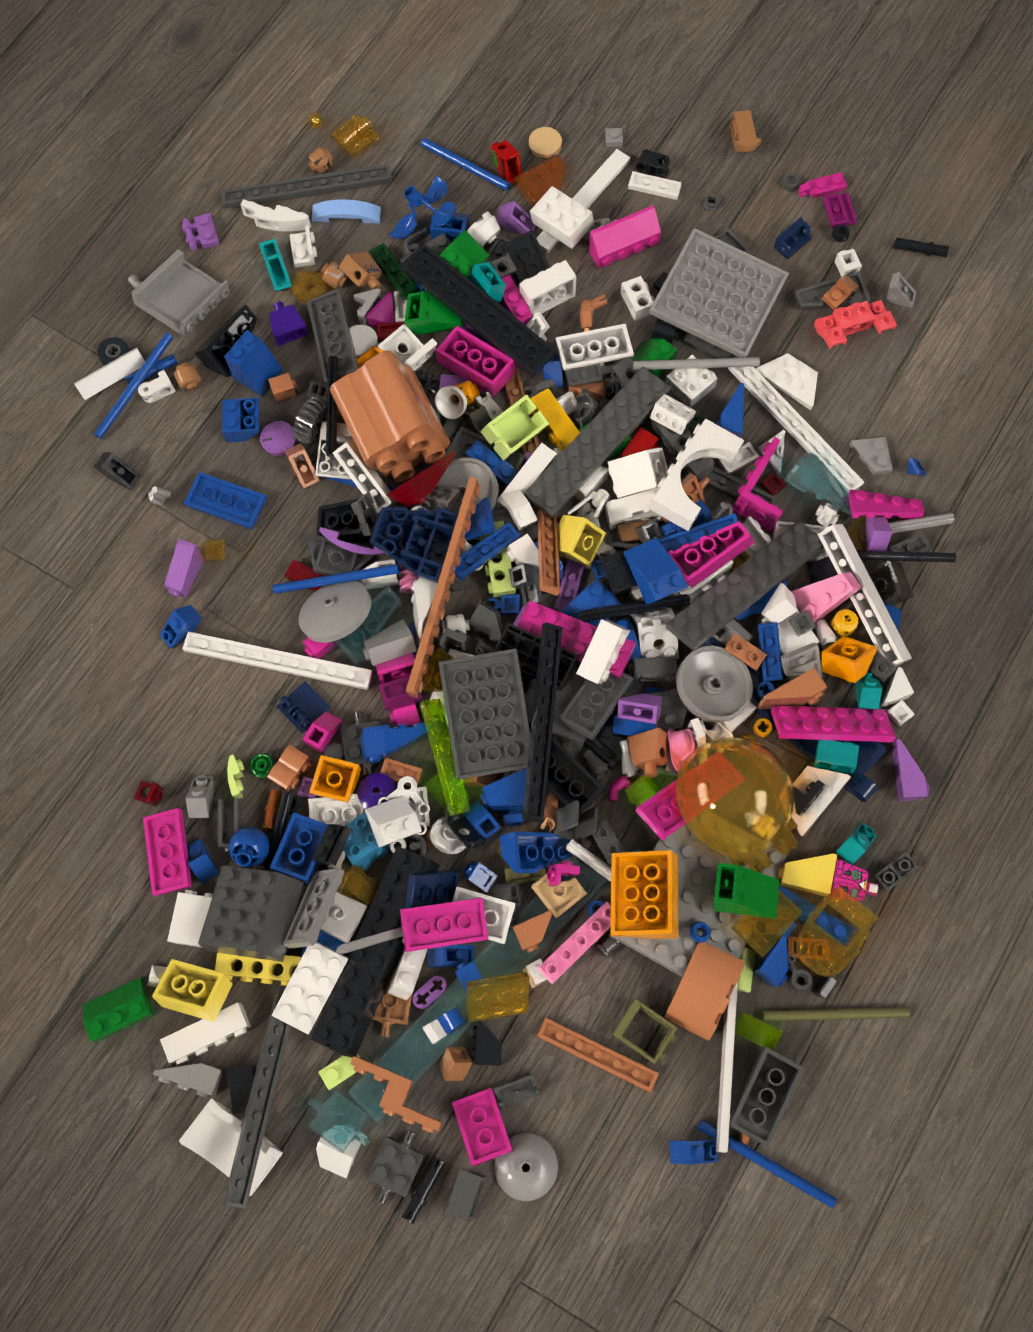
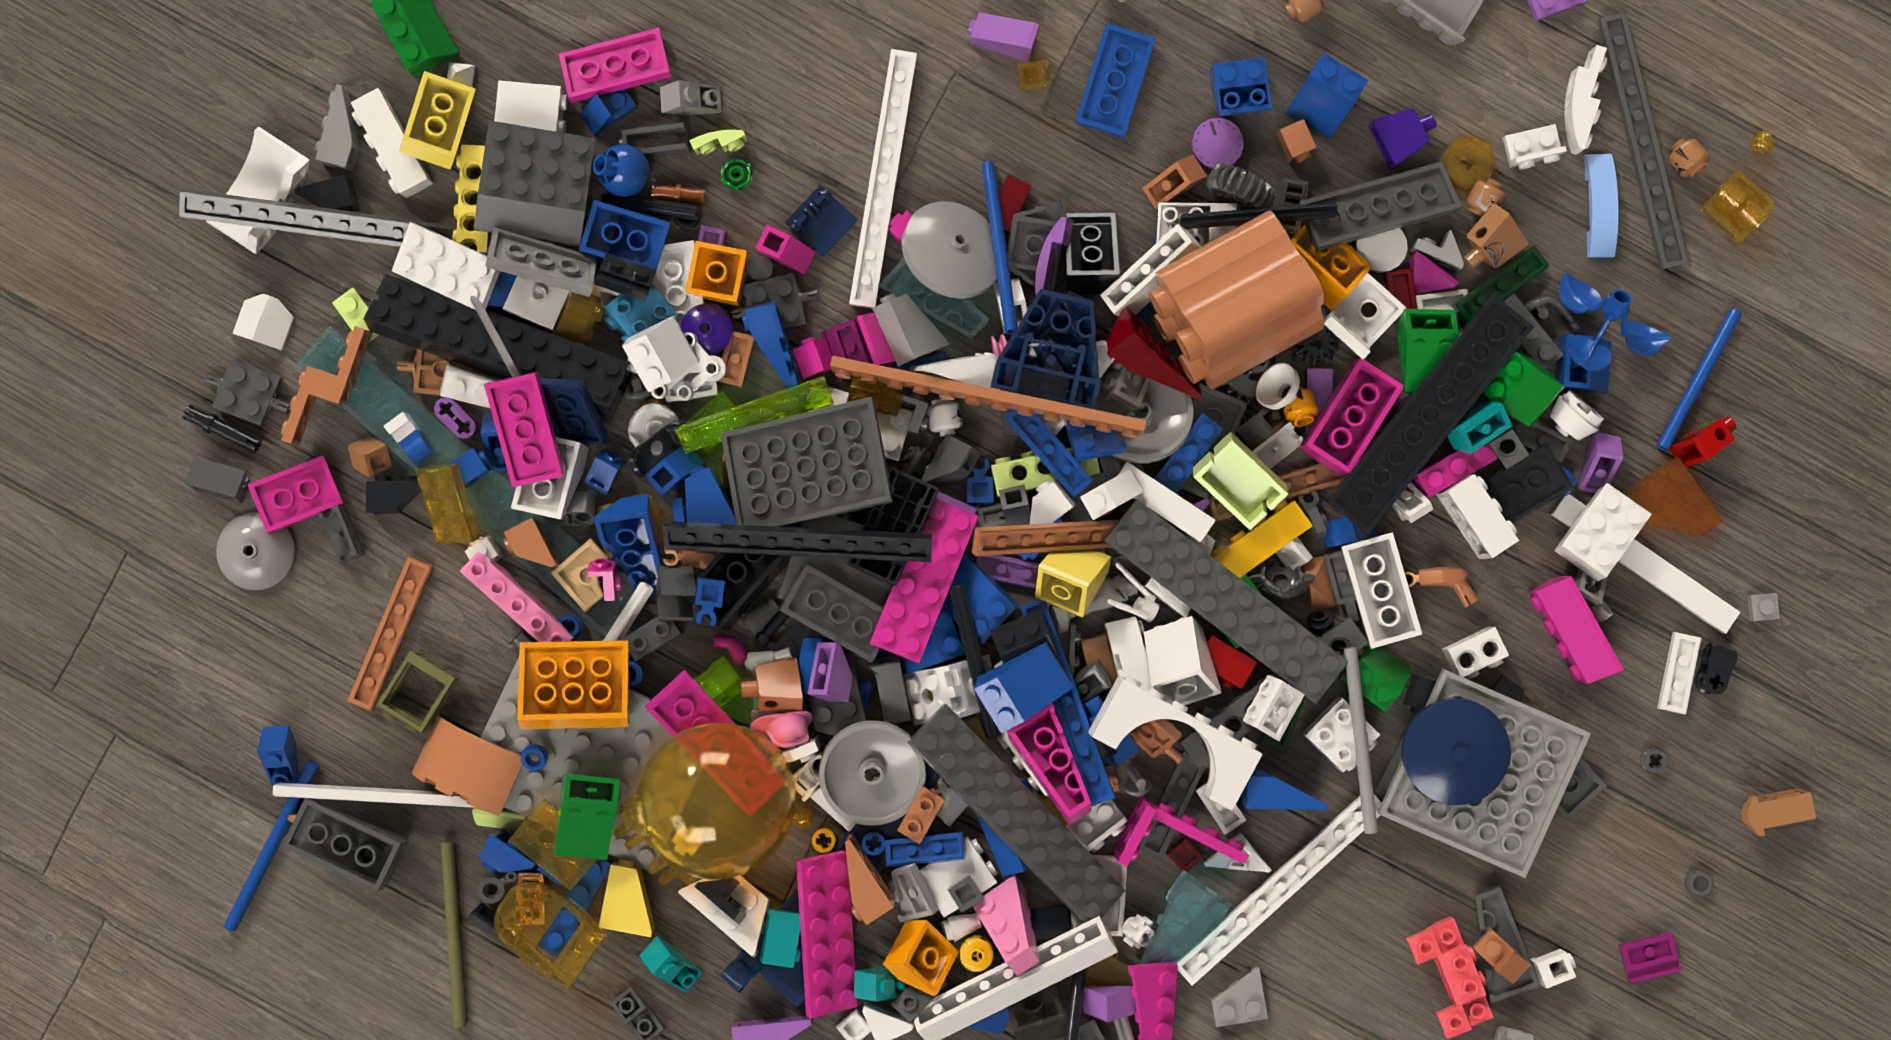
camera: 85 degrees right, 15 degrees up
(154, 794) = (689, 39): dark red bracket -> none
(179, 624) = (925, 41): blue slope -> none
(214, 349) = (1368, 52): black wedge -> none
(275, 265) = (1499, 109): teal slope -> none
(289, 768) = (734, 211): nougat brick -> none
(338, 1121) = (293, 318): clear light blue plate -> none
(364, 515) = (1098, 284): dark grey piece -> none
(545, 142) = (1746, 500): tan tile -> none
(580, 792) = (708, 595): none -> blue plate
(603, 651) = (898, 620): white wedge -> none
(704, 306) = (1456, 751): none -> dark blue dish
(758, 1031) = (426, 834): clear neon green slope -> none
(780, 605) = (989, 863): white slope -> none
(791, 378) = (1357, 882): white wing -> none
(793, 238) = (1594, 886): dark blue hinge -> none
(823, 186) = (1694, 934): dark pink hinge -> none
(840, 233) = (1608, 958): black plate -> none
(853, 881) = (618, 956): torso -> none

